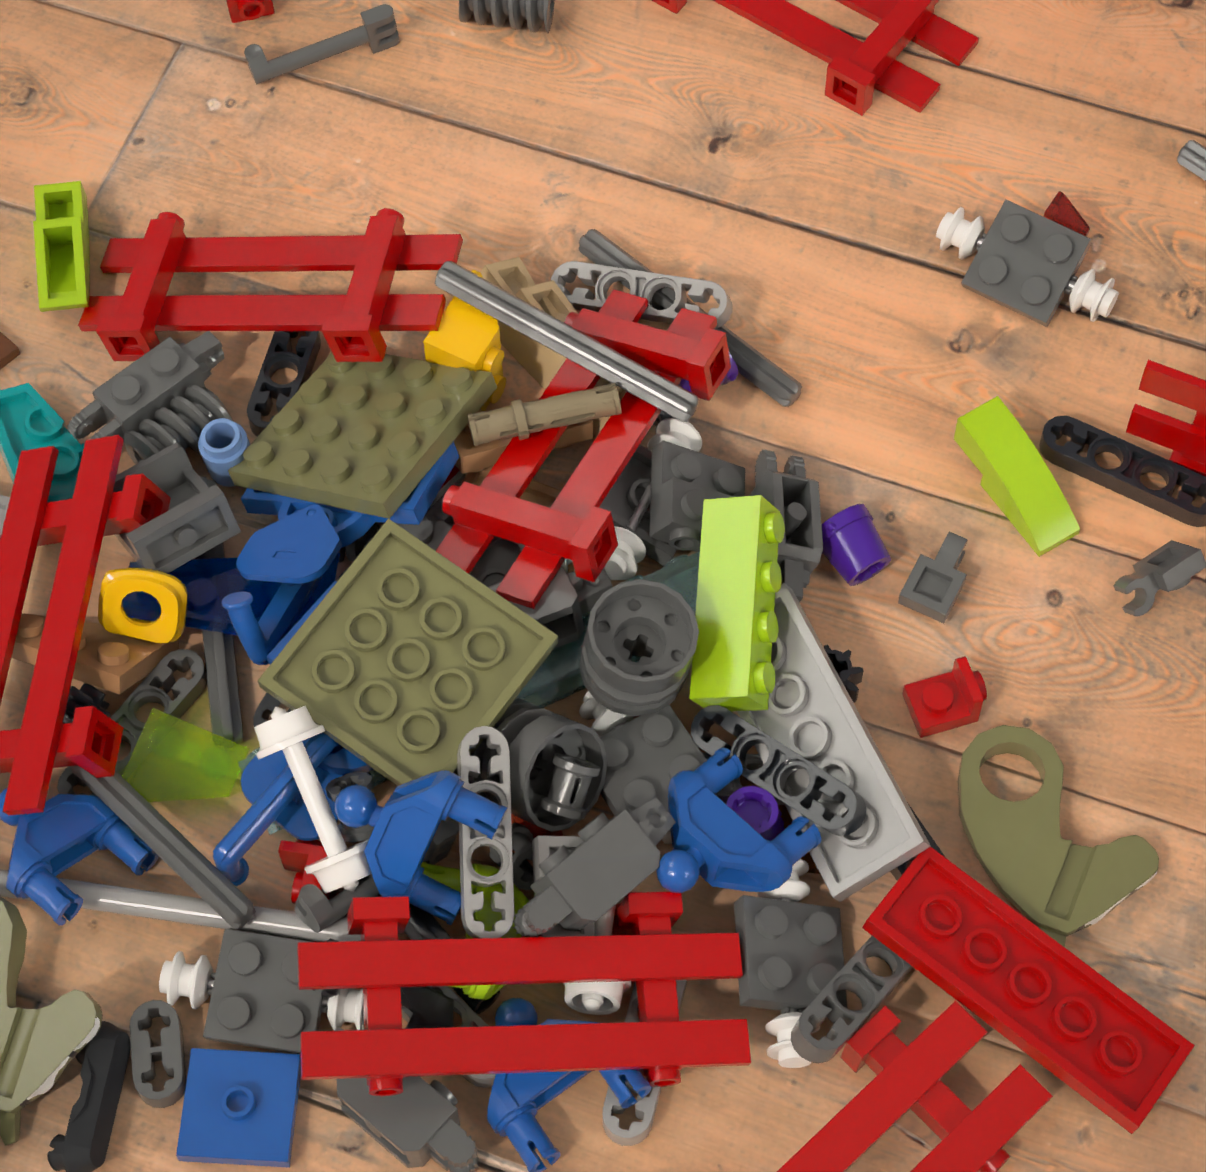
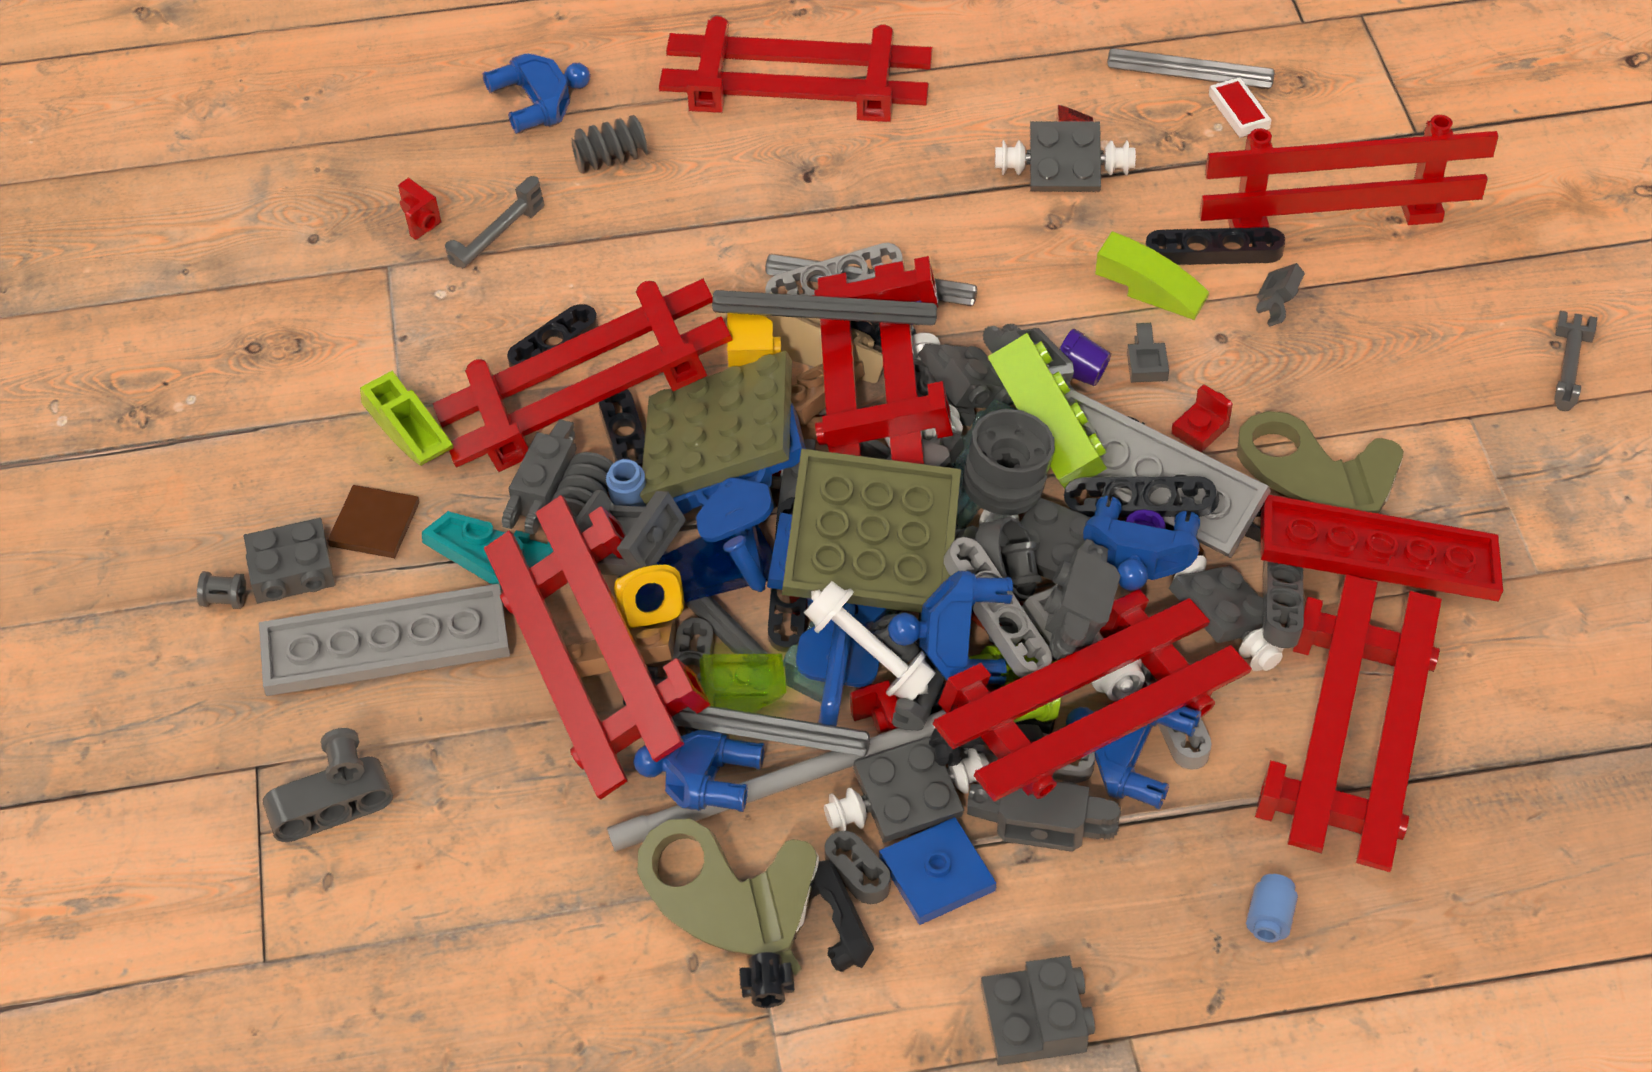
camera: 30 degrees left, 10 degrees down
(297, 207) = (567, 325): none -> black beam
(553, 412) = (830, 366): dark tan pin -> none

